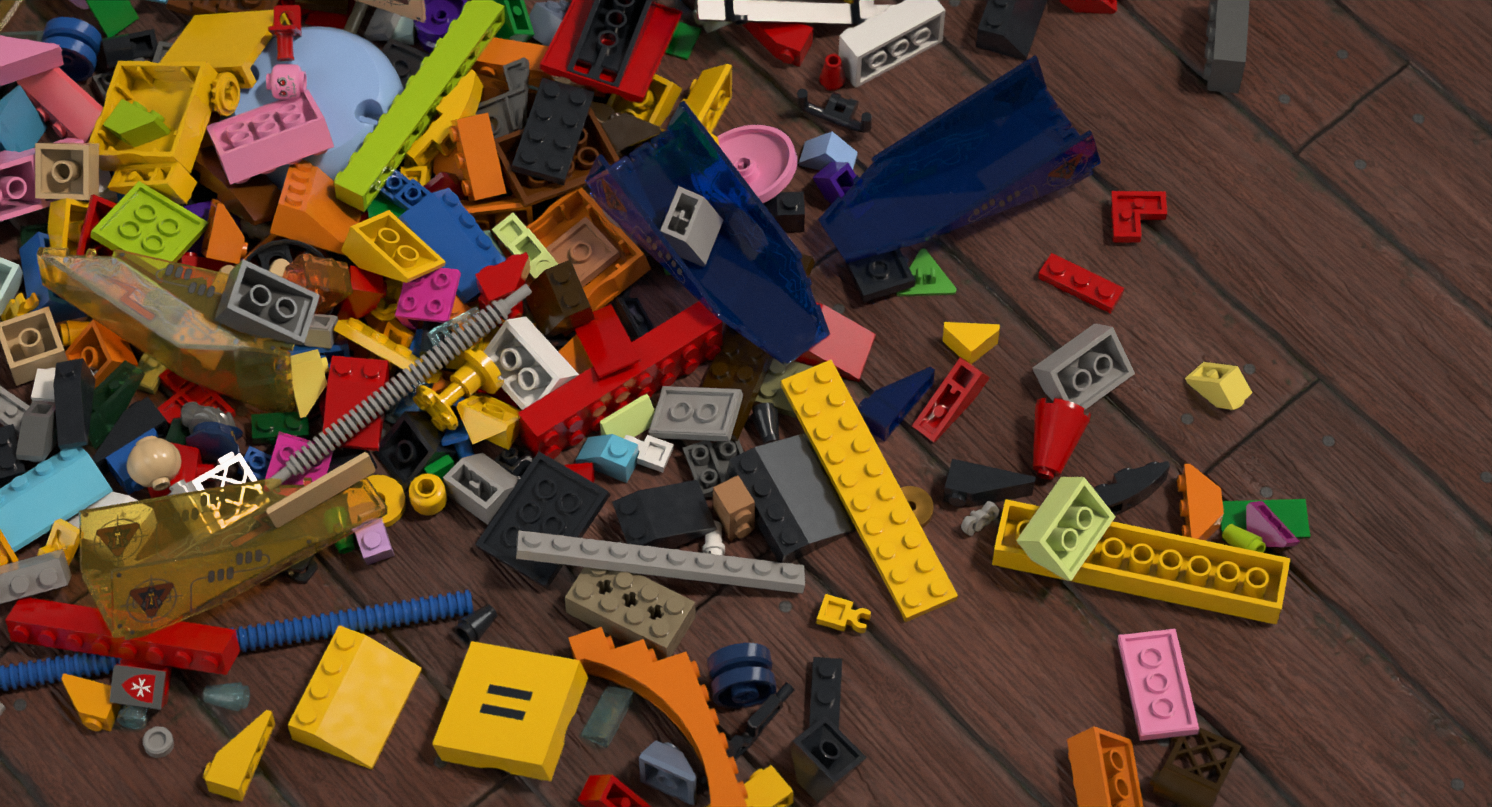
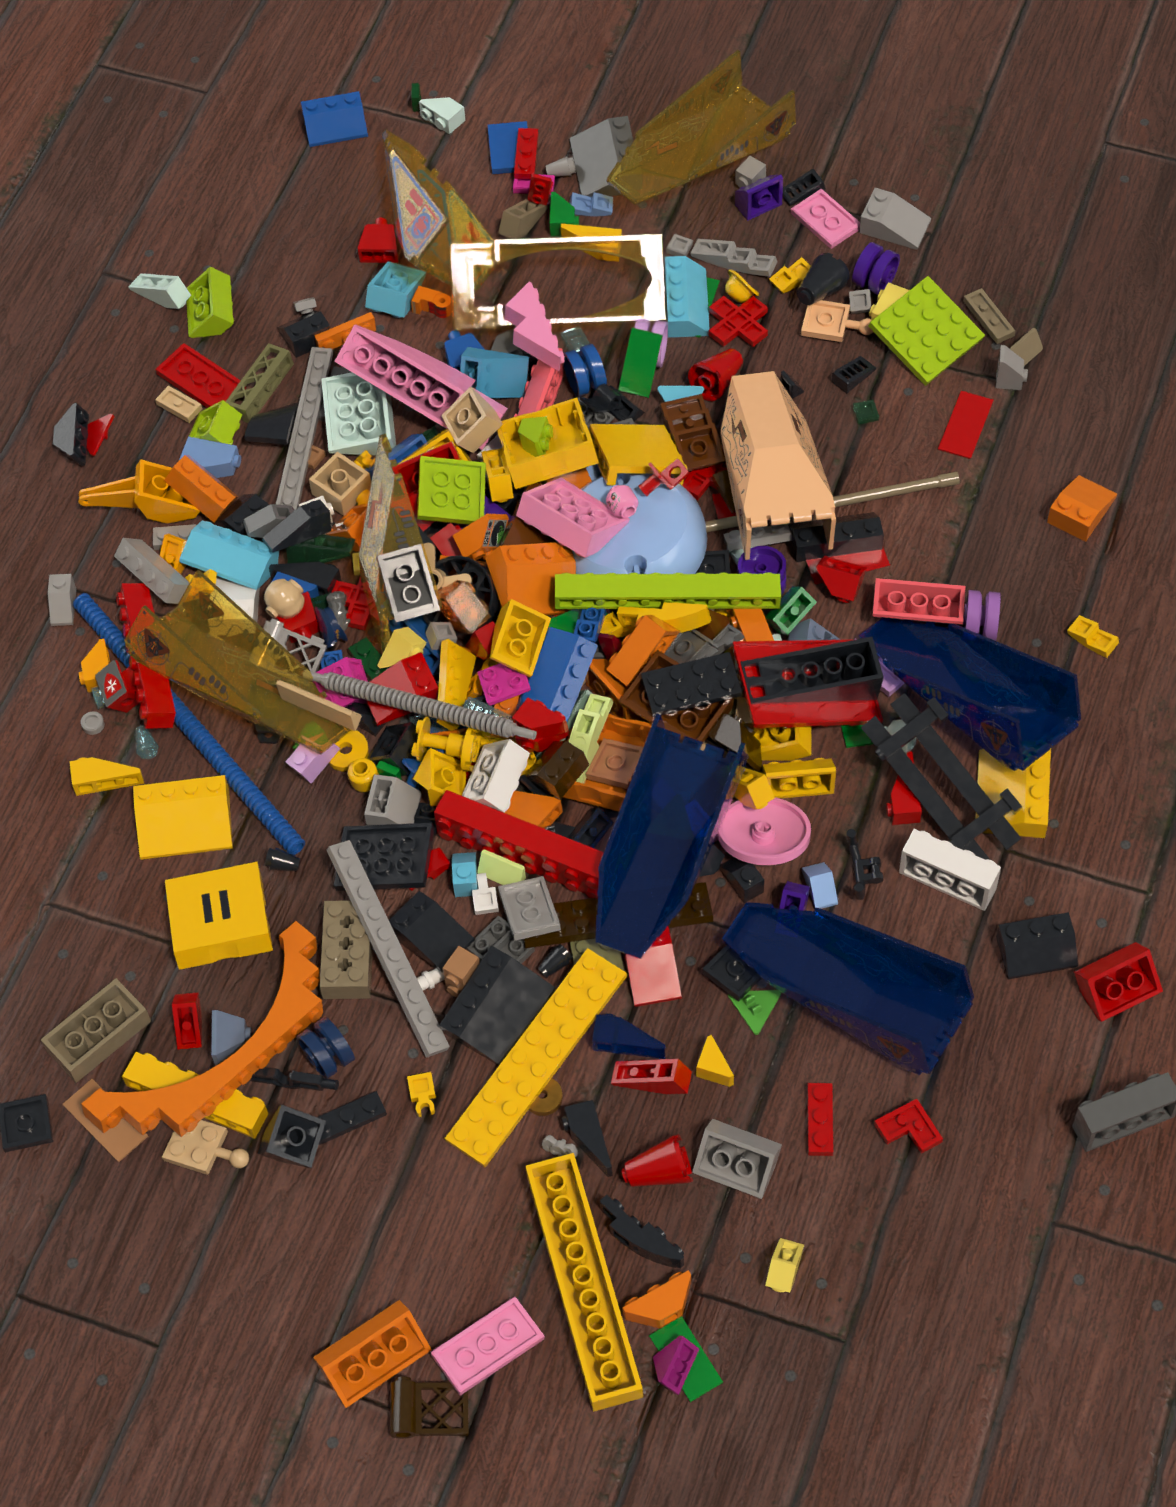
camera: 65 degrees right, 0 degrees up
(225, 93) = (595, 473): yellow gear -> none
(607, 342) = (542, 815): red piece -> none
(608, 715) = (256, 982): clear light blue slope -> none
(691, 226) = (670, 816): light grey slope -> none
(832, 73) = (893, 847): red cone -> none
(1066, 527) = (566, 1206): yellowish green slope -> none
(1243, 539) = (648, 1351): lime cone -> none

